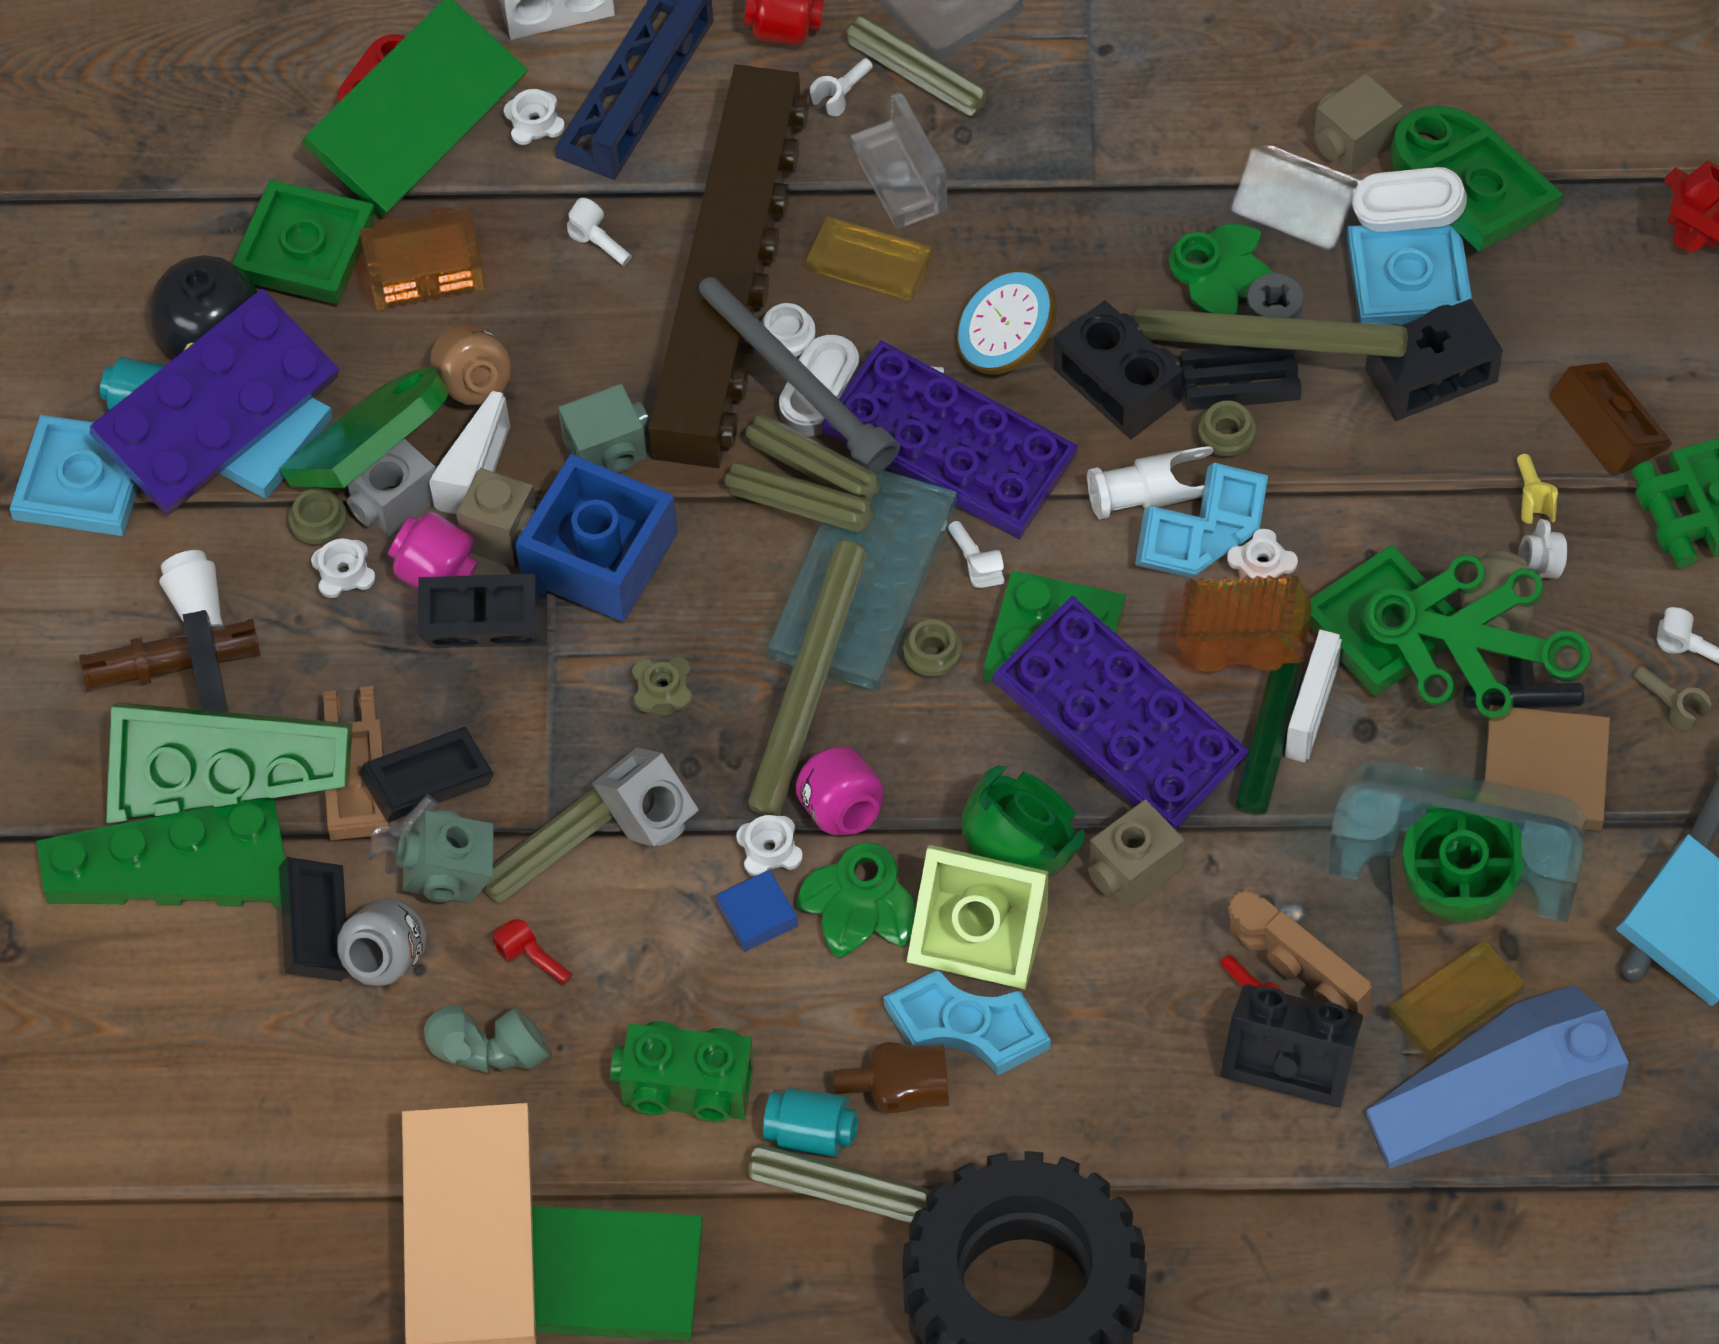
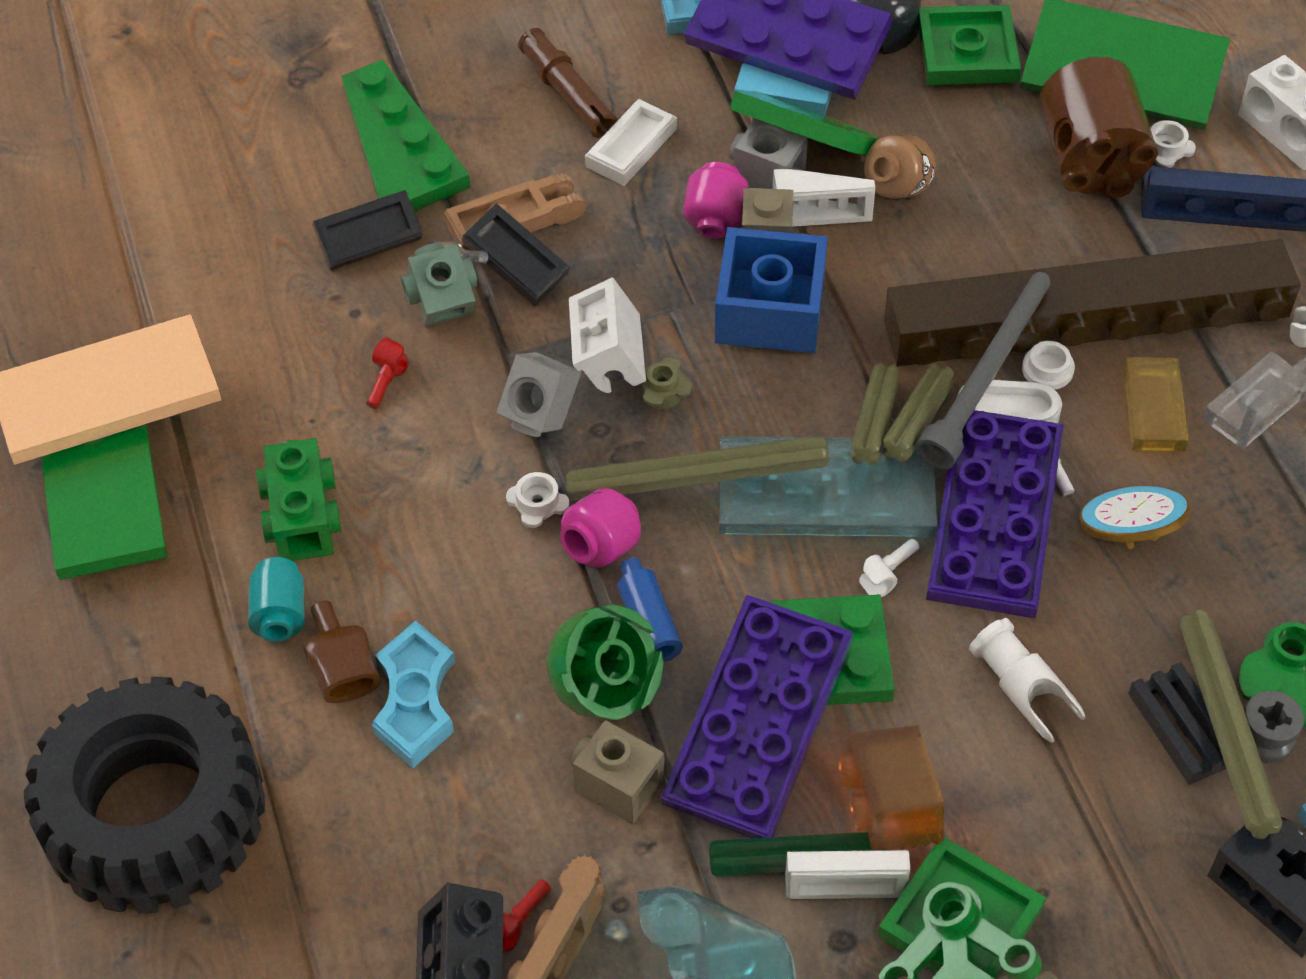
camera: 70 degrees right, 5 degrees down
(192, 584) = (626, 76): white cone -> none
(203, 758) = (473, 122): wing -> none
(205, 661) = (546, 96): black tile -> none
(289, 619) = (631, 142): none -> white tile
(317, 516) = (723, 126): olive plate -> none
(340, 554) = (686, 154): white plate -> none
(381, 942) = (351, 268): light grey head -> none
(422, 258) = (989, 113): clear orange brick -> none
(457, 1040) = (293, 380): sand green arm -> none
(482, 611) = (670, 239): black brick -> none
(505, 162) = (1097, 126): none -> reddish brown cylinder
(547, 845) = (472, 347): olive axle -> none
(583, 226) = (1084, 204): white hand -> none
(591, 712) = (606, 335): none -> white hinge
(606, 429) = (878, 263): sand green brick -> none
(757, 910) = (473, 509): blue tile -> none
(836, 1183) = (229, 636): olive axle -> none
(858, 907) = (502, 581): green plate -> none
(932, 634) = (777, 547): olive plate -> none
(941, 778) = (643, 594): none -> blue cylinder
(978, 917) = (507, 667): yellowish green slope -> none
(1110, 375) = (1125, 612): black brick -> none
(1190, 543) = (1015, 751): medium azure tile -> none
(1229, 416) = (1121, 713): olive plate -> none
(1263, 544) = (983, 809): white plate -> none

